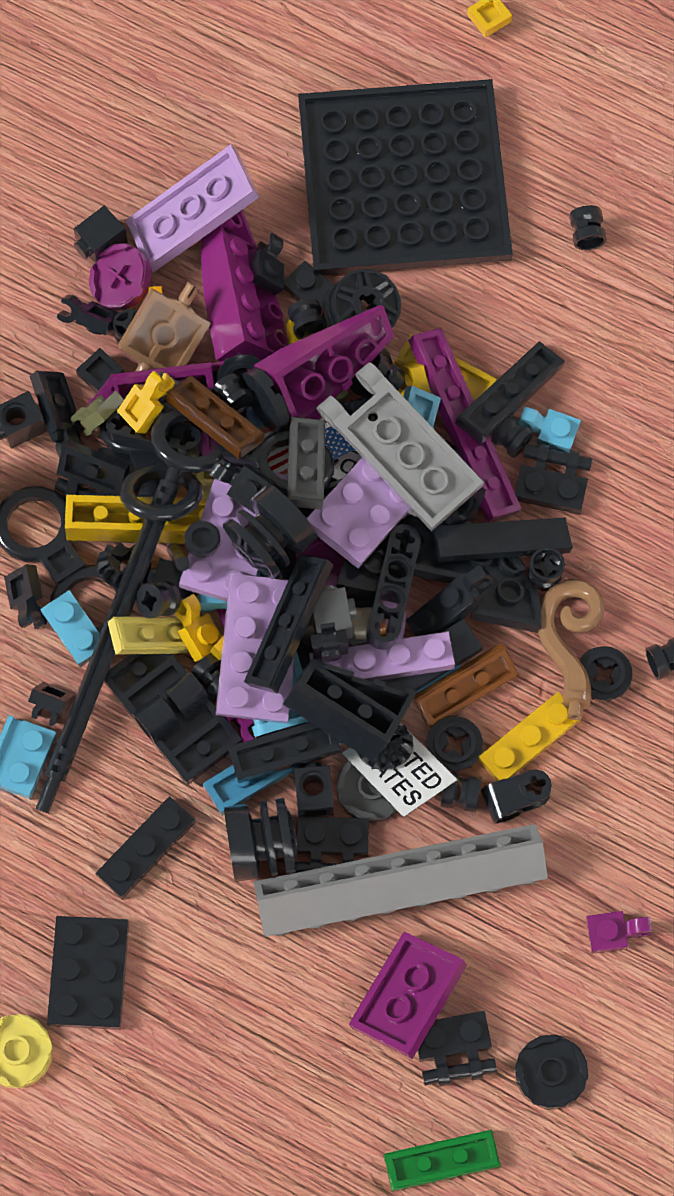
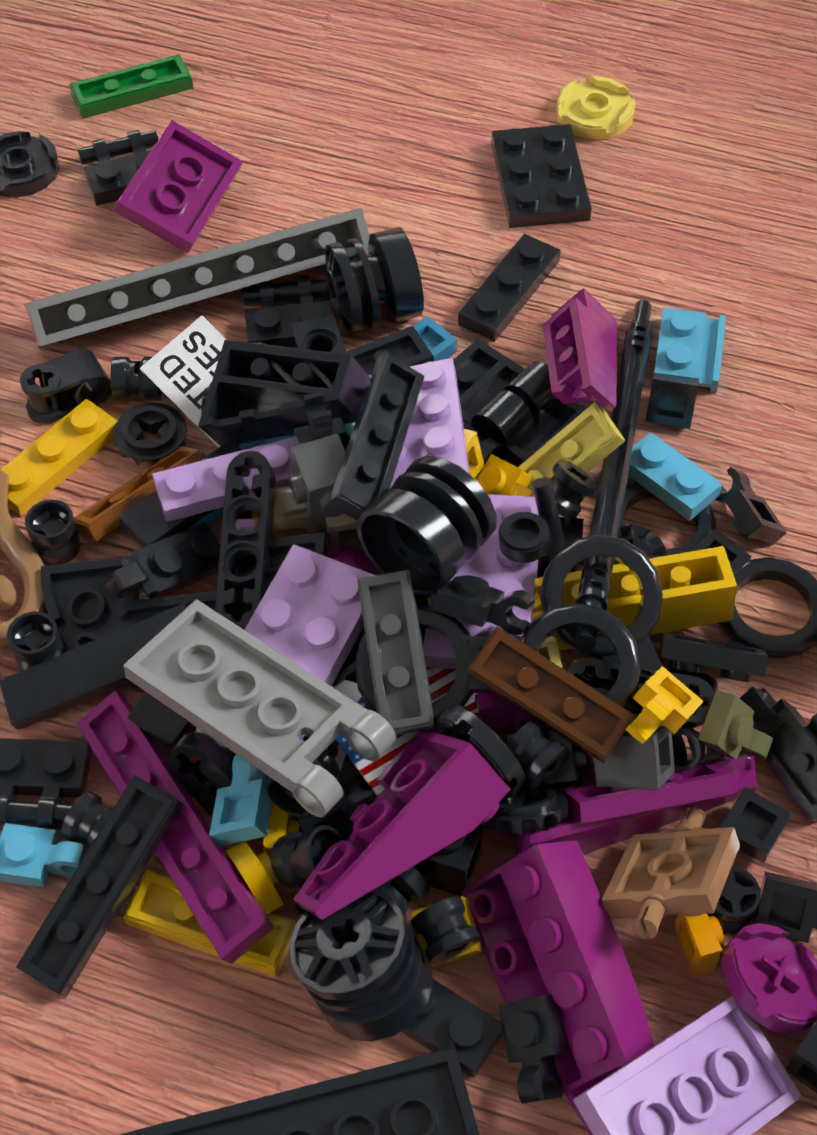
camera: 170 degrees right, 15 degrees down
(111, 732) = (582, 352): none -> magenta wedge
(534, 652) = (53, 531): none -> black wheel

